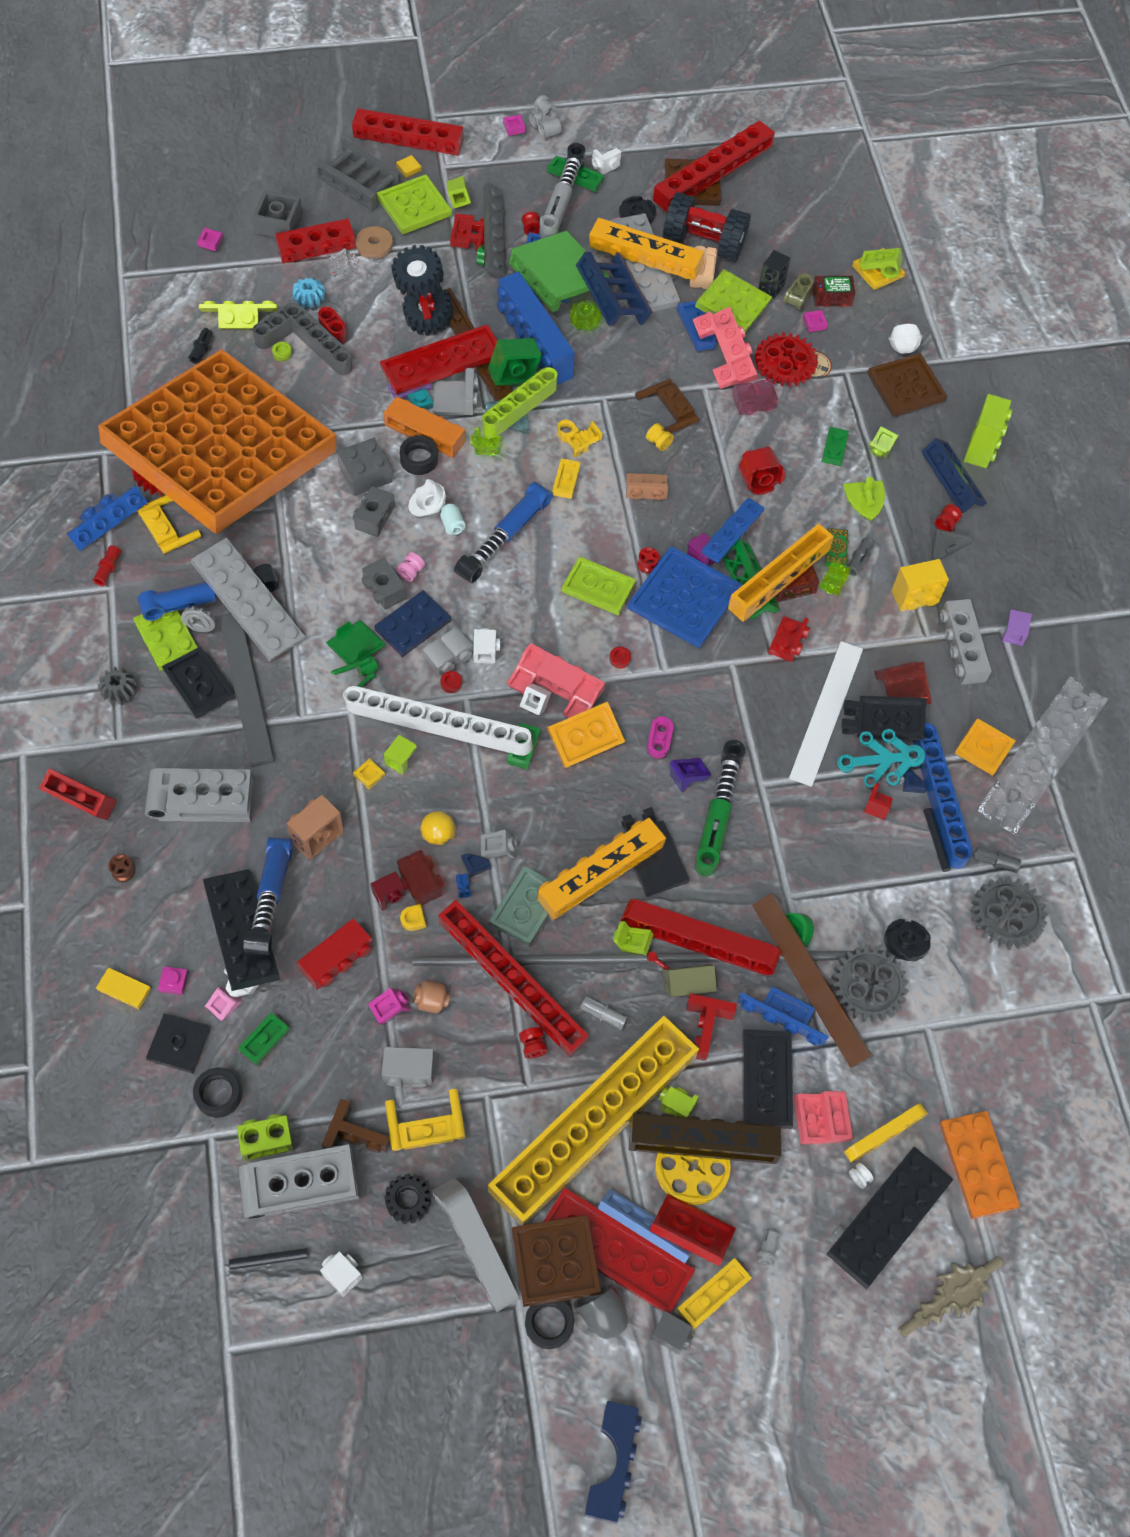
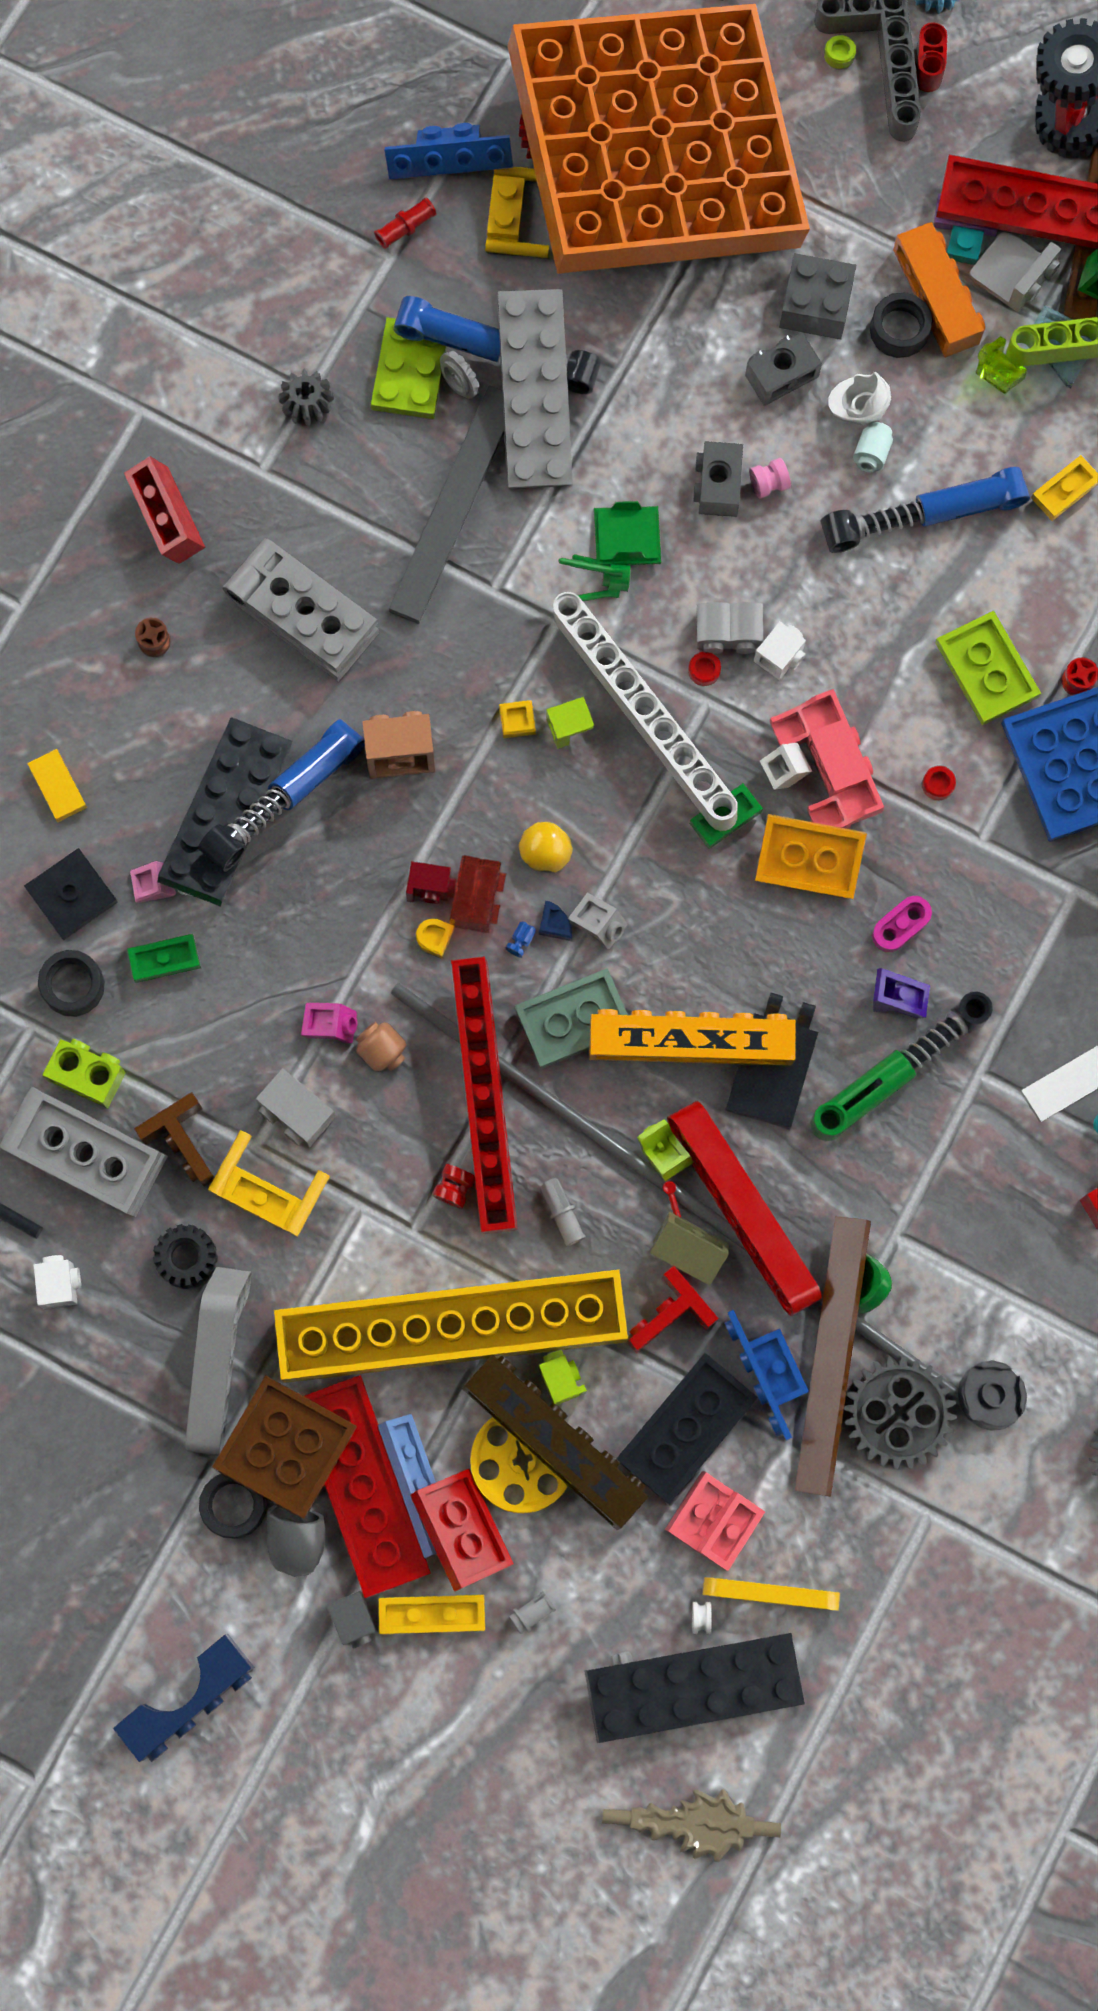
camera: 40 degrees right, 15 degrees up
(173, 980) = (116, 815): dark pink plate -> none
(198, 682) = (402, 457): black plate -> none
(335, 954) = (312, 917): red brick -> none
(412, 623) = (717, 556): dark blue plate -> none
(979, 1165) = (850, 1711): orange plate -> none

